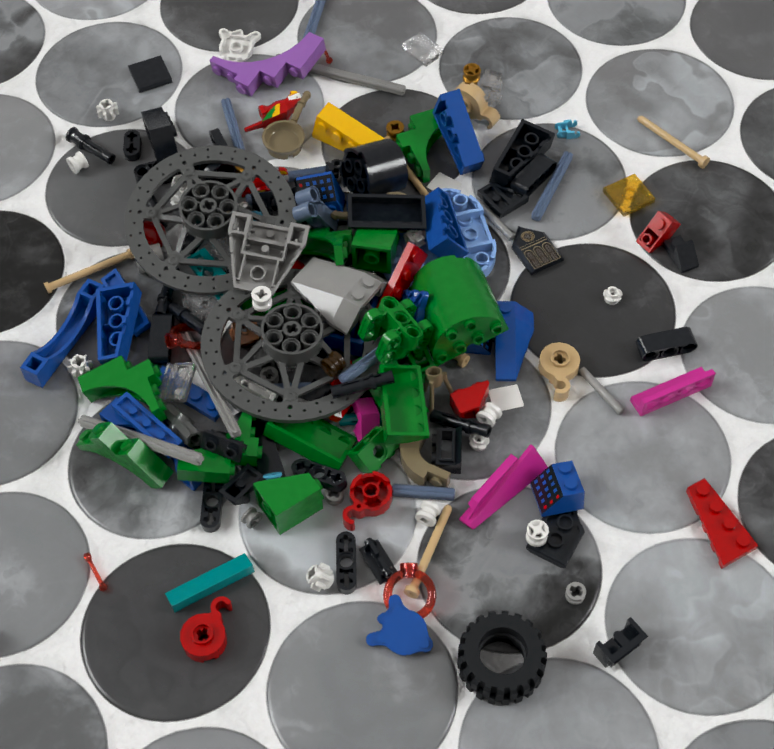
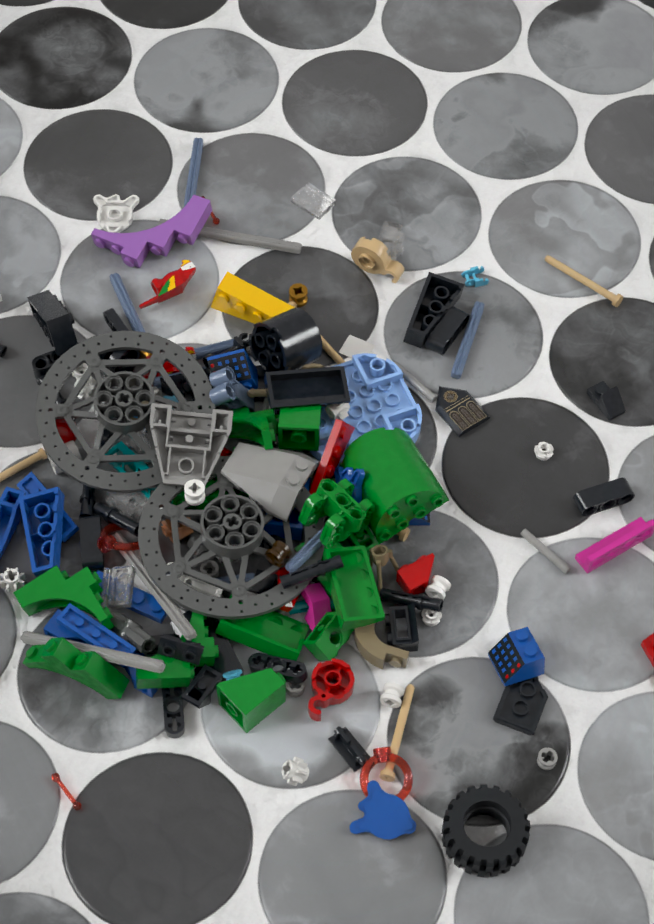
camera: 10 degrees left, 0 degrees up
(128, 145) = (18, 334): black beam -> none
(150, 74) = (27, 252): black tile -> none
(206, 624) = (190, 831): red piece -> none
(209, 582) = (184, 789): teal slope -> none
(251, 517) = (216, 719): light grey bush -> none
(286, 136) = (185, 310): dark tan piece -> none
(340, 570) = (313, 762): black beam -> none
(418, 140) = (327, 293): green arch -> none
(424, 492) = (384, 673): sand blue axle -> none
(443, 229) = (365, 396): blue wedge -> none
(458, 131) = (365, 291): blue wedge -> none
(471, 73) = (368, 224): pearl gold wheel -> none
(501, 199) = (418, 359): black wing -> none
(503, 485) = (462, 659): dark pink wedge -> none
(506, 397) = (452, 567): white sticker -> none
(513, 343) = (451, 516): blue wedge -> none
(534, 528) = (502, 698): white wheel -> none
(558, 373) = (501, 538): tan piece -> none
(620, 644) = (597, 804): black window -> none
(629, 195) = (546, 342): clear yellow tile -> none
(657, 231) = (580, 379): red slope -> none

